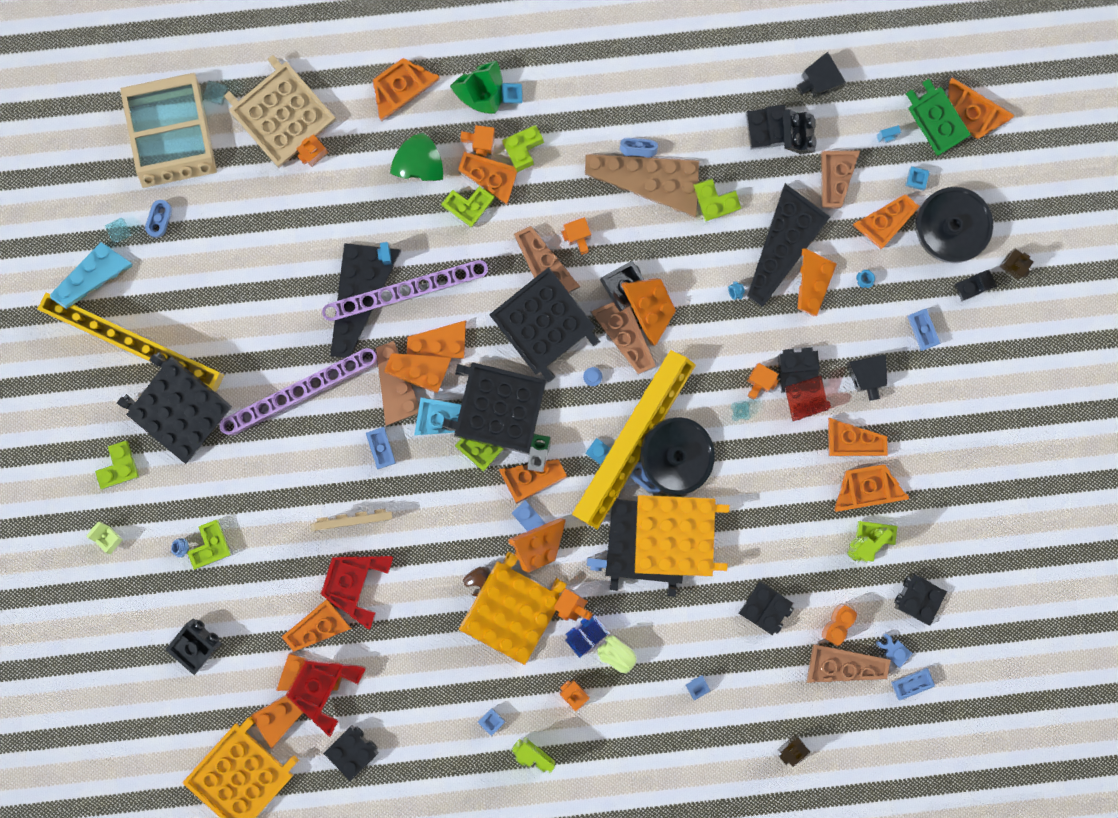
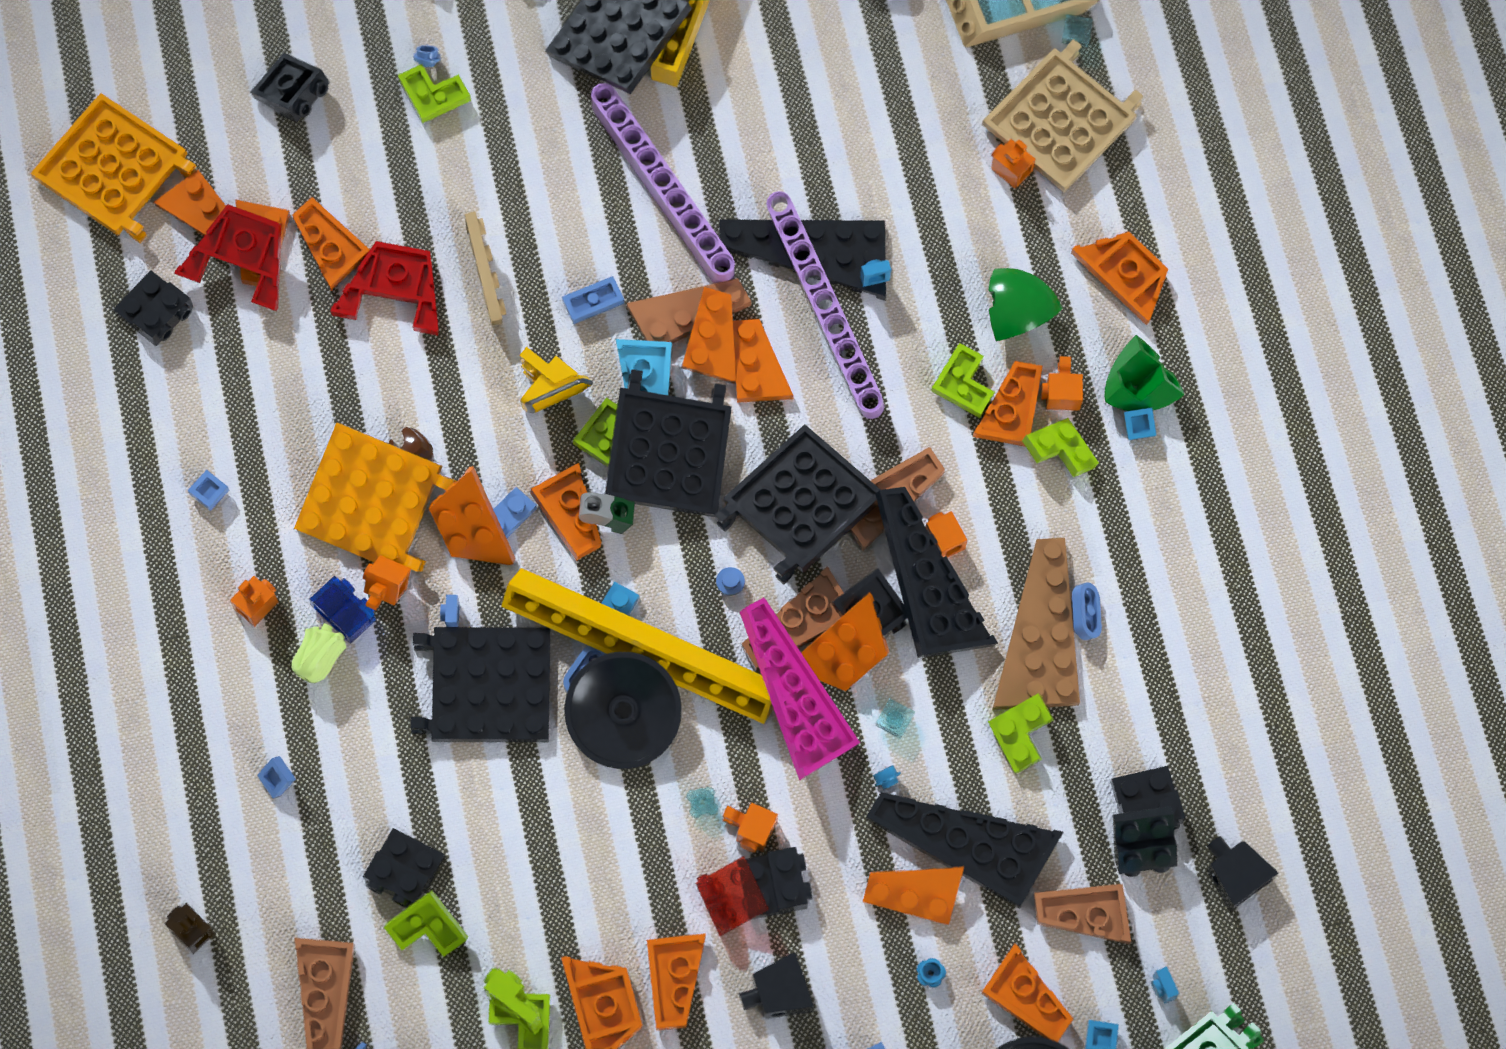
camera: 85 degrees right, 15 degrees down
(443, 480) = (551, 381): none -> yellow piece
(528, 752) = (166, 542): lime plate -> none
(618, 244) = (930, 588): none -> black wing
(676, 535) = (502, 720): light orange plate -> none
(690, 337) = (805, 711): none -> dark pink wing
(698, 280) = (895, 718): none -> clear light blue plate
(804, 594) = (429, 918): none -> lime plate
(841, 619) = (378, 975): orange brick -> none

